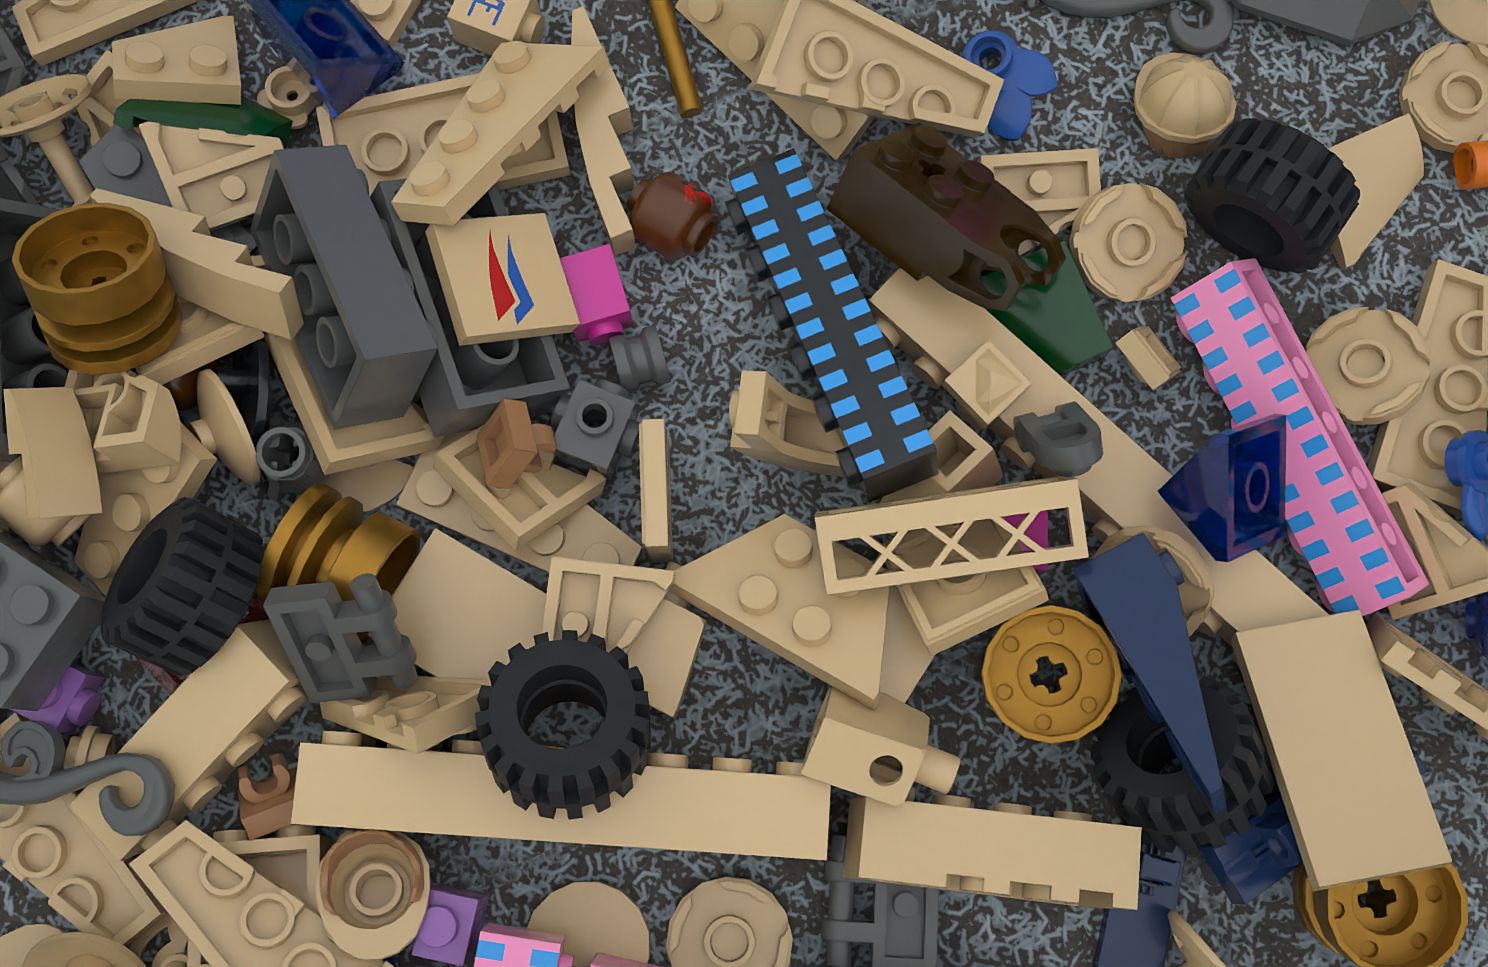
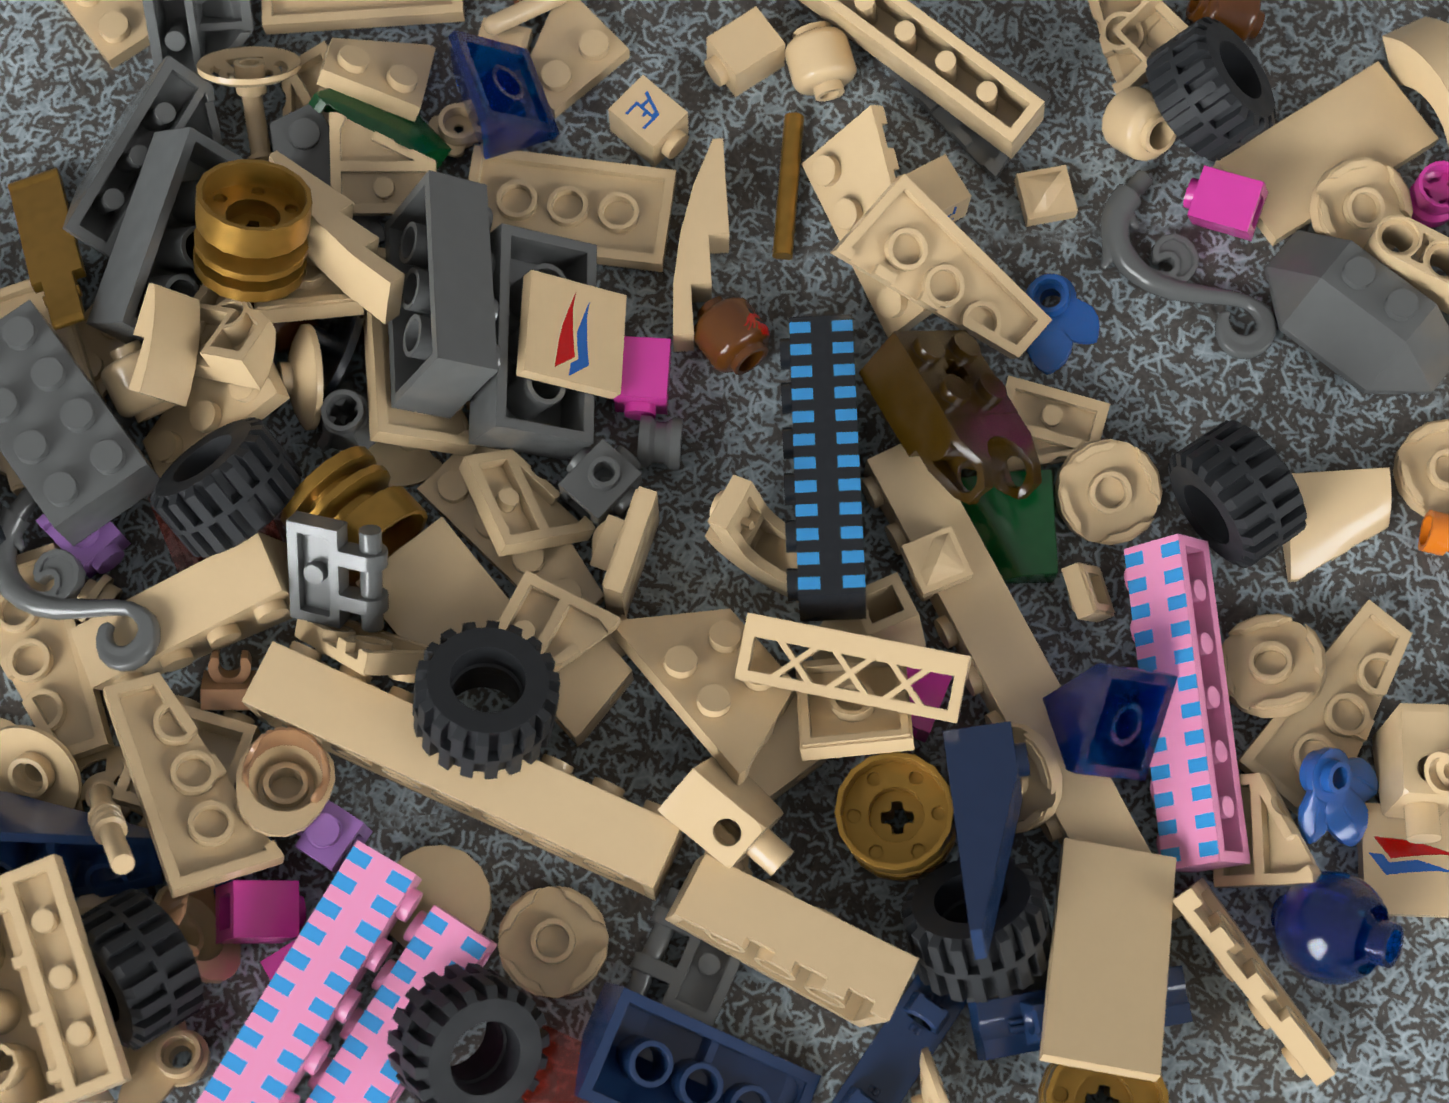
camera: 20 degrees right, 5 degrees down
(492, 123) = (612, 208): tan wing -> none
(512, 444) = (529, 471): medium nougat tile -> none
(625, 490) = (604, 541): none -> tan tile
(1061, 440) = (975, 627): dark grey plate -> none
(1183, 104) = (1200, 391): tan piece -> none

